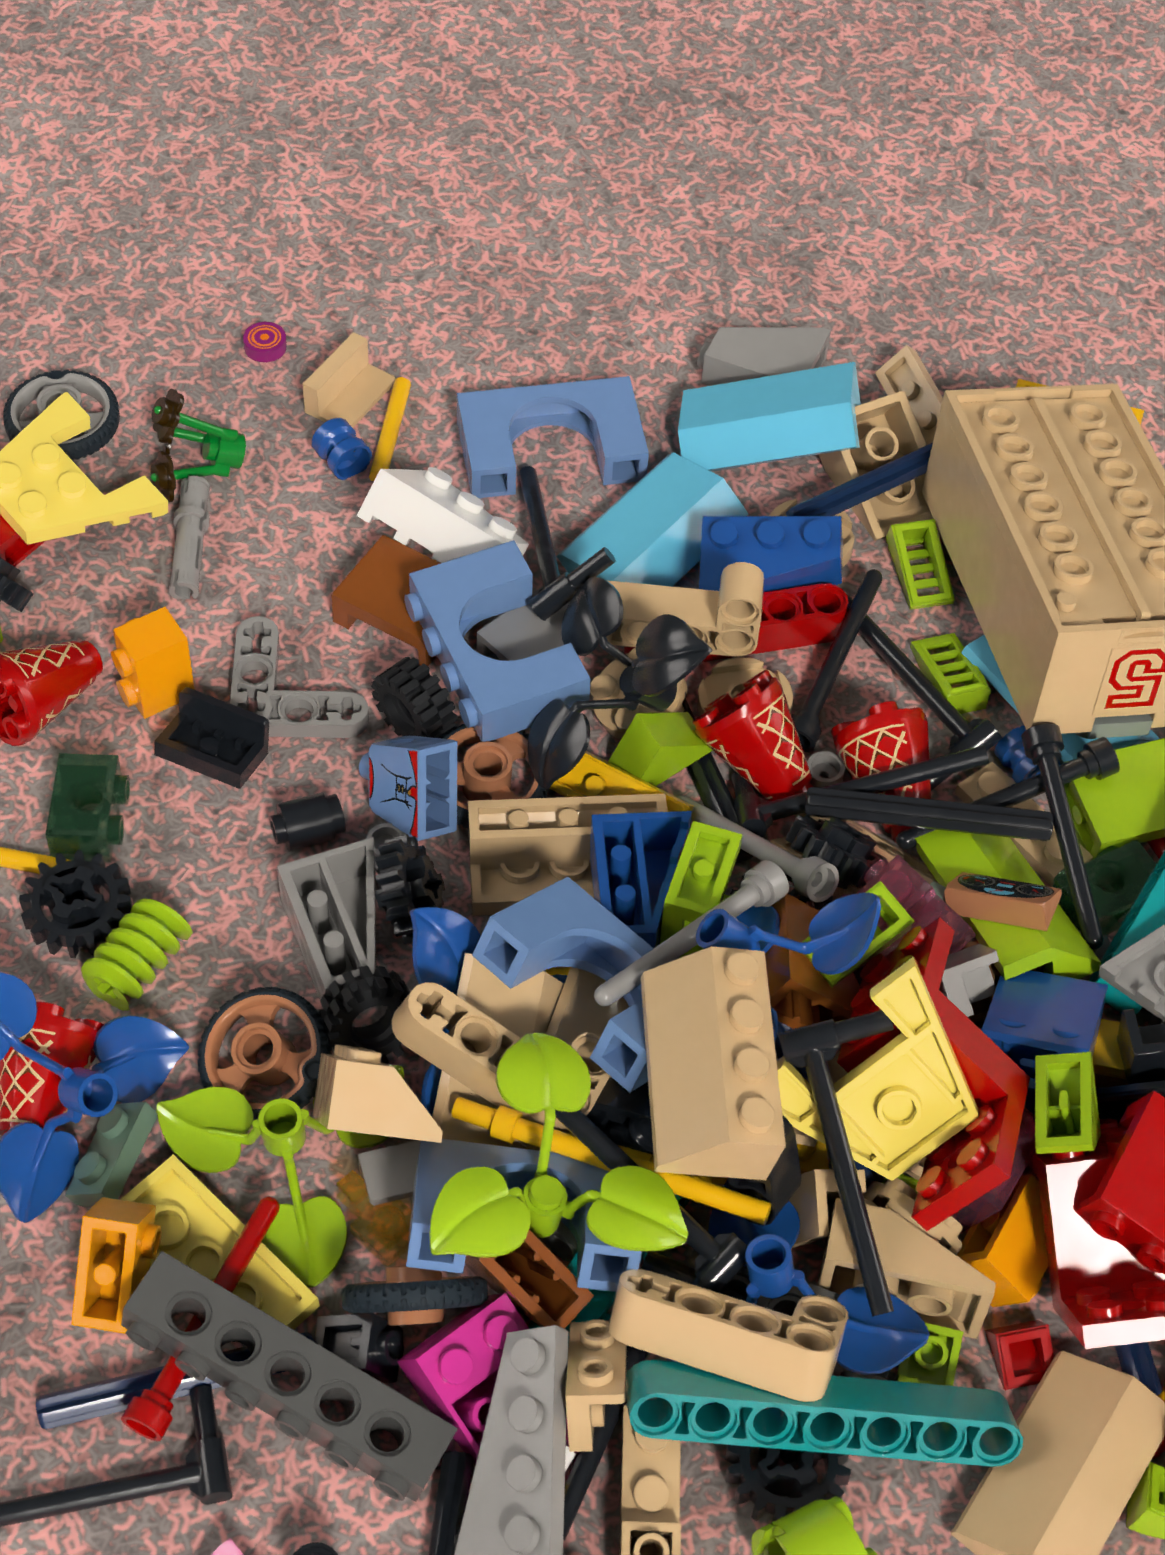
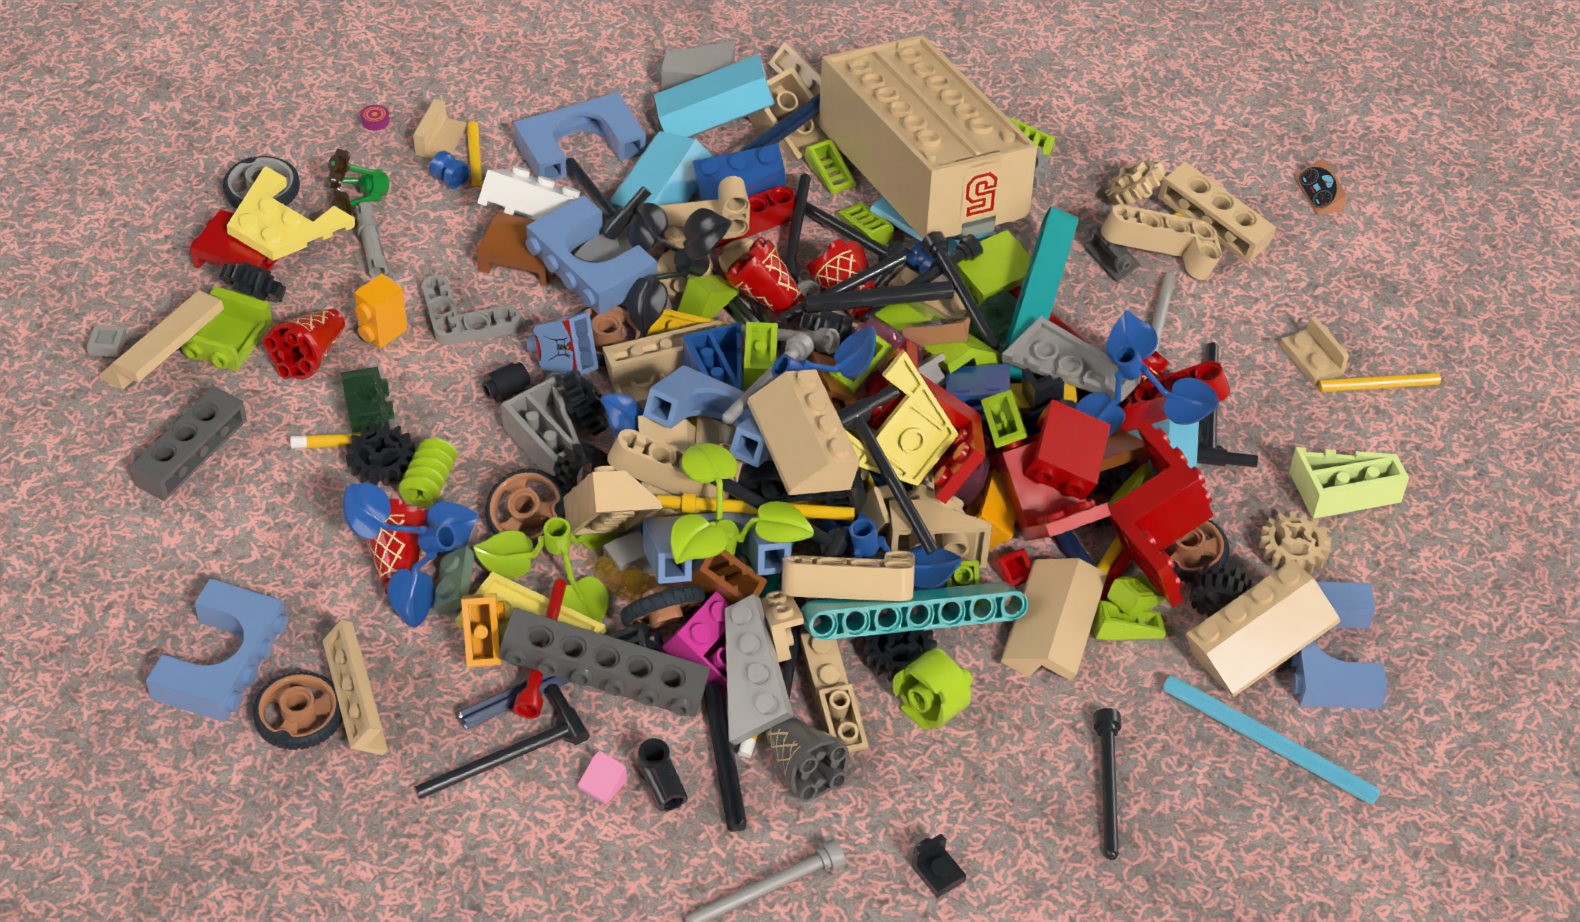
camera: 15 degrees left, 5 degrees down
(214, 738) = (431, 347): black bracket -> none
(413, 700) = (548, 299): black tyre -> none

